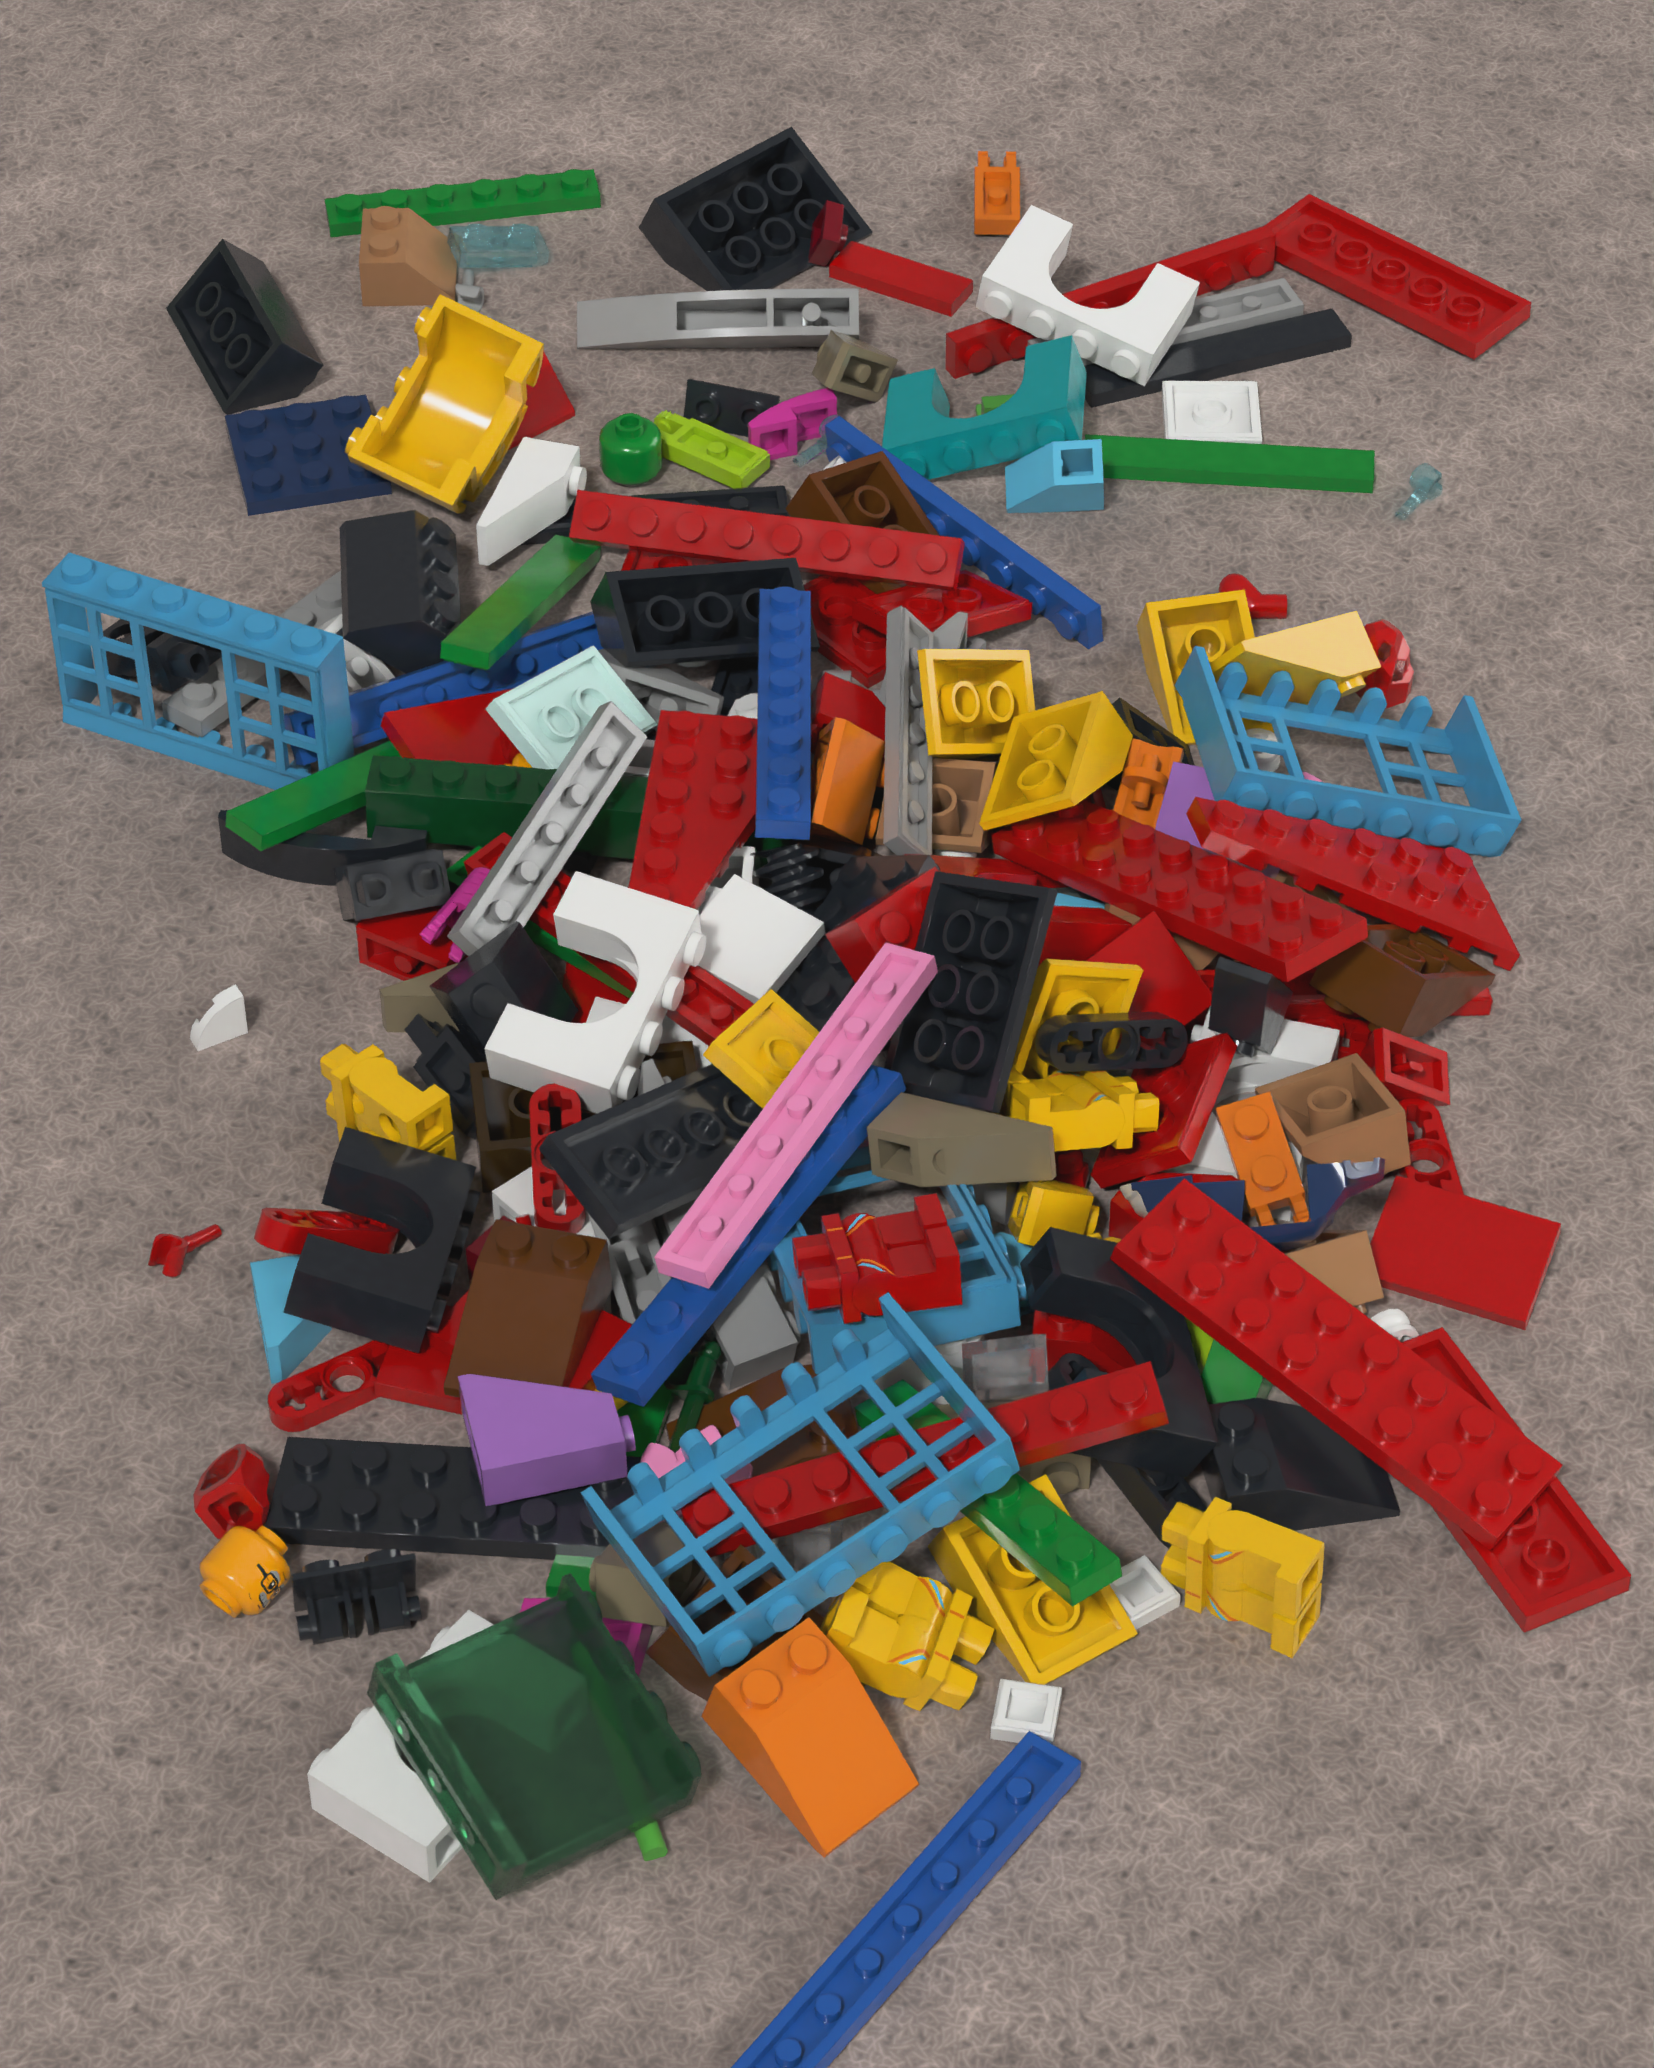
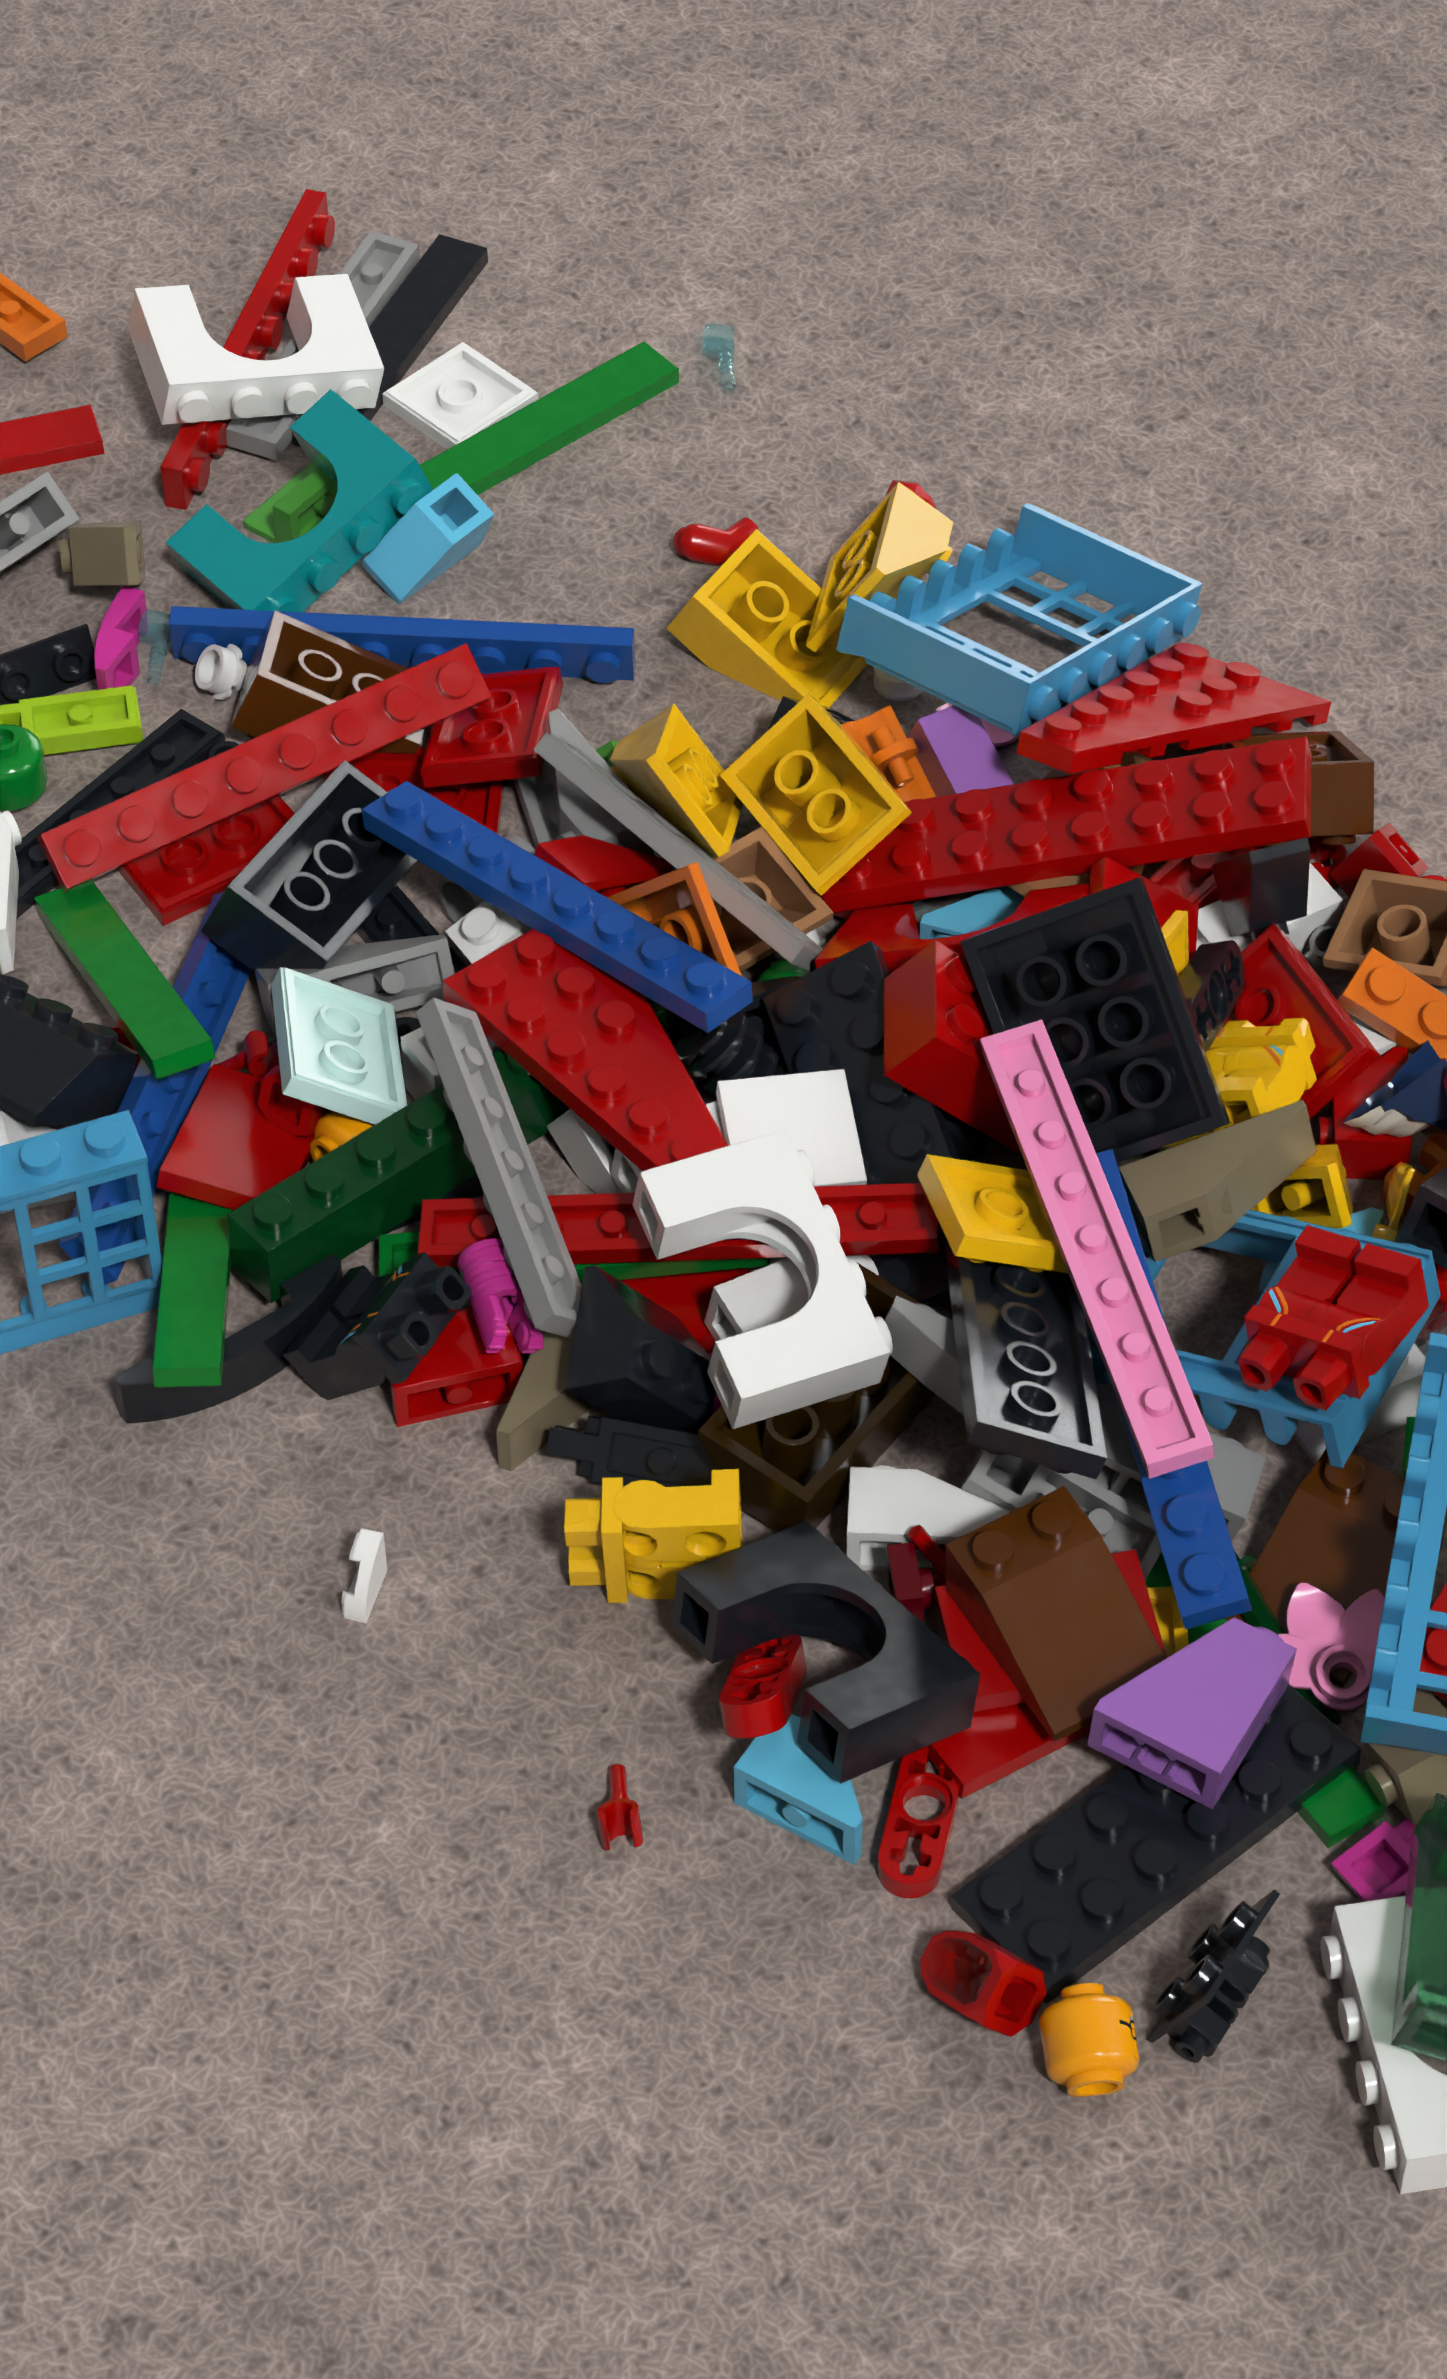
camera: 45 degrees left, 5 degrees up
(546, 1179) = (893, 1484): red beam -> none
(1395, 277) = (452, 172): red plate -> none

